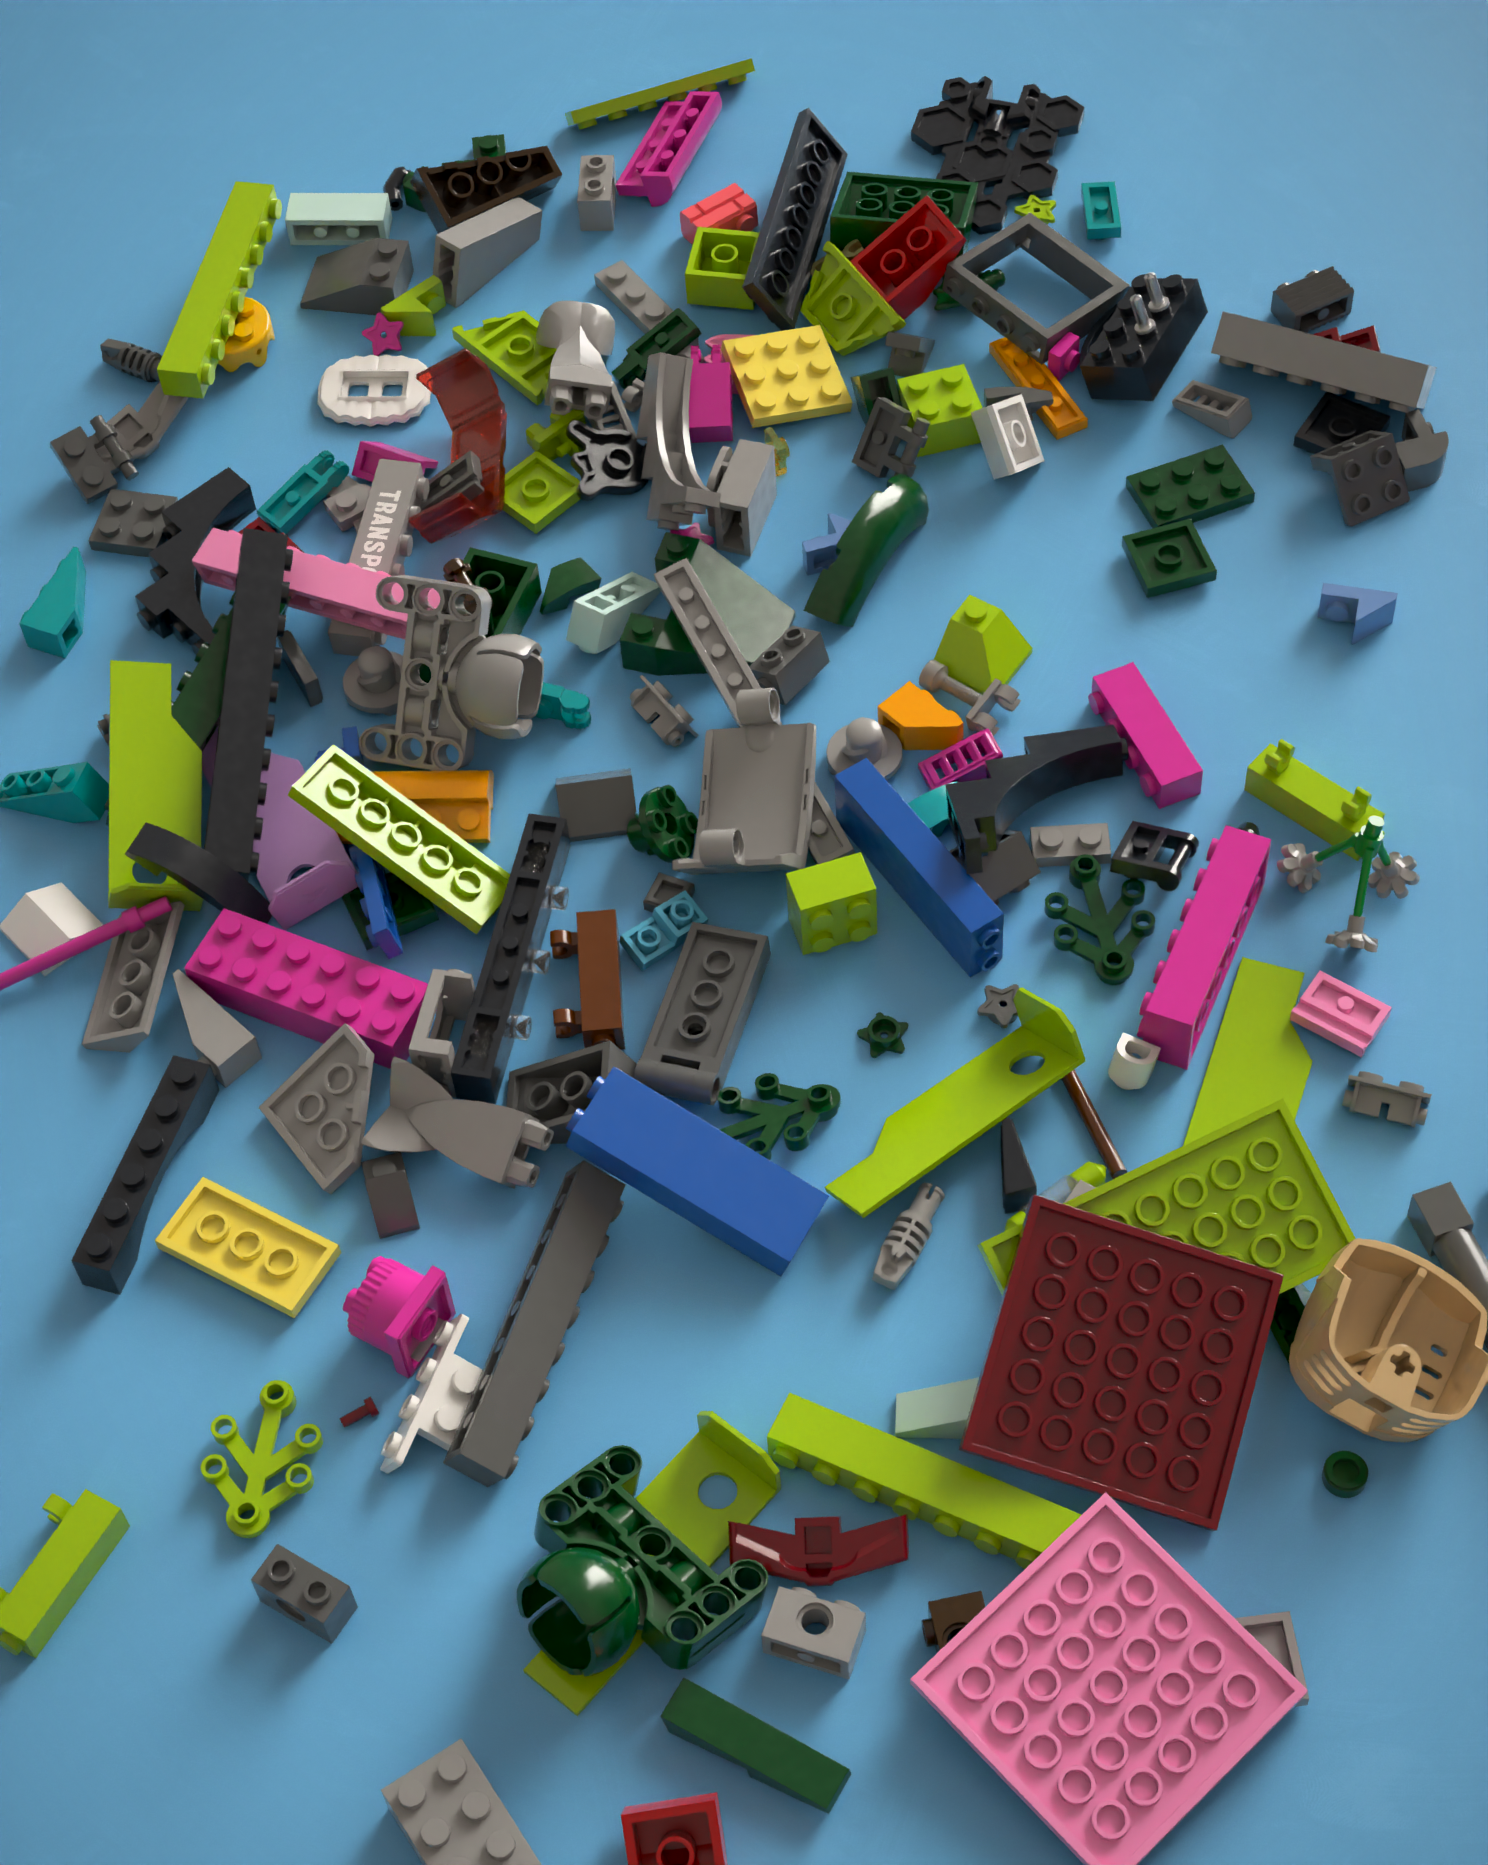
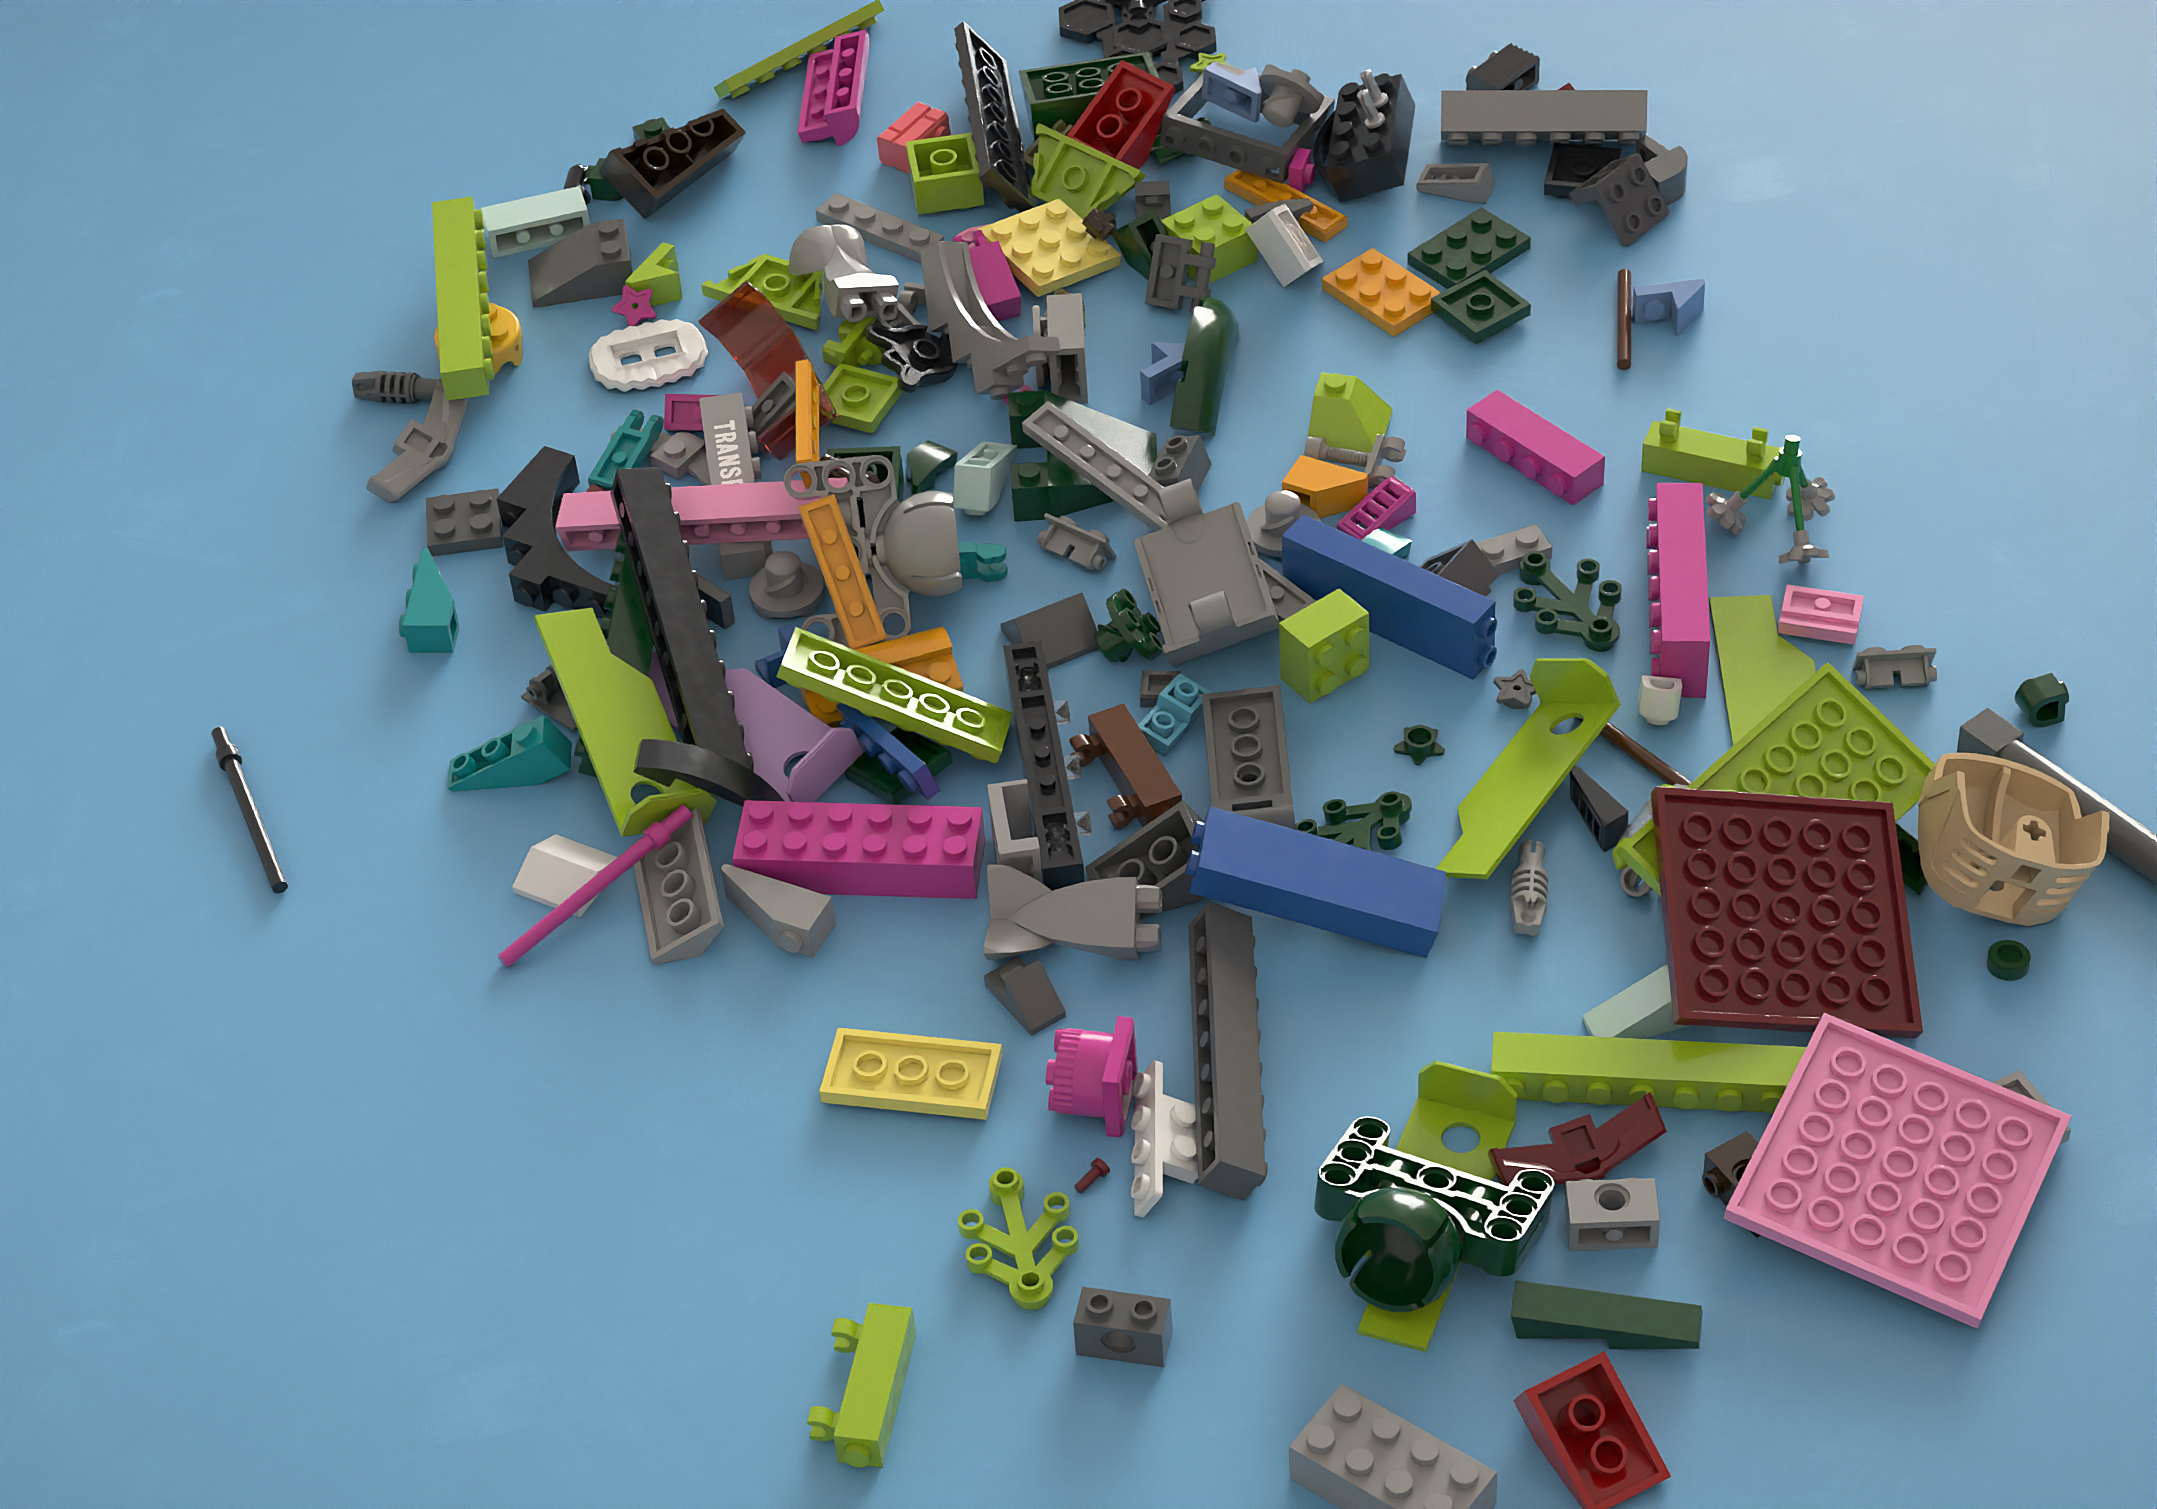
camera: 20 degrees left, 10 degrees down
(85, 466) = (392, 481): dark grey plate -> none
(117, 1227) = (778, 1052): black arch -> none
(326, 1107) = (930, 937): light grey plate -> none
(408, 694) = (842, 572): none -> light orange tile
(440, 521) = (806, 417): none -> light orange tile
(483, 246) = (698, 209): light grey slope -> none
(597, 193) = (784, 142): light grey brick -> none
(667, 337) = (905, 258): dark green hinge -> none
(842, 366) = (1100, 224): none -> dark brown bar
(1024, 257) = (1233, 92): none -> medium blue slope
(1052, 763) = (1457, 492): black arch -> none
(1073, 276) = (1288, 95): none -> light grey plate
(1083, 512) = (1381, 291): none -> light orange plate
(1101, 210) = (1270, 48): teal plate -> none
(1142, 848) = (1581, 537): black plate -> none
(1305, 612) = (1624, 319): none -> reddish brown bar

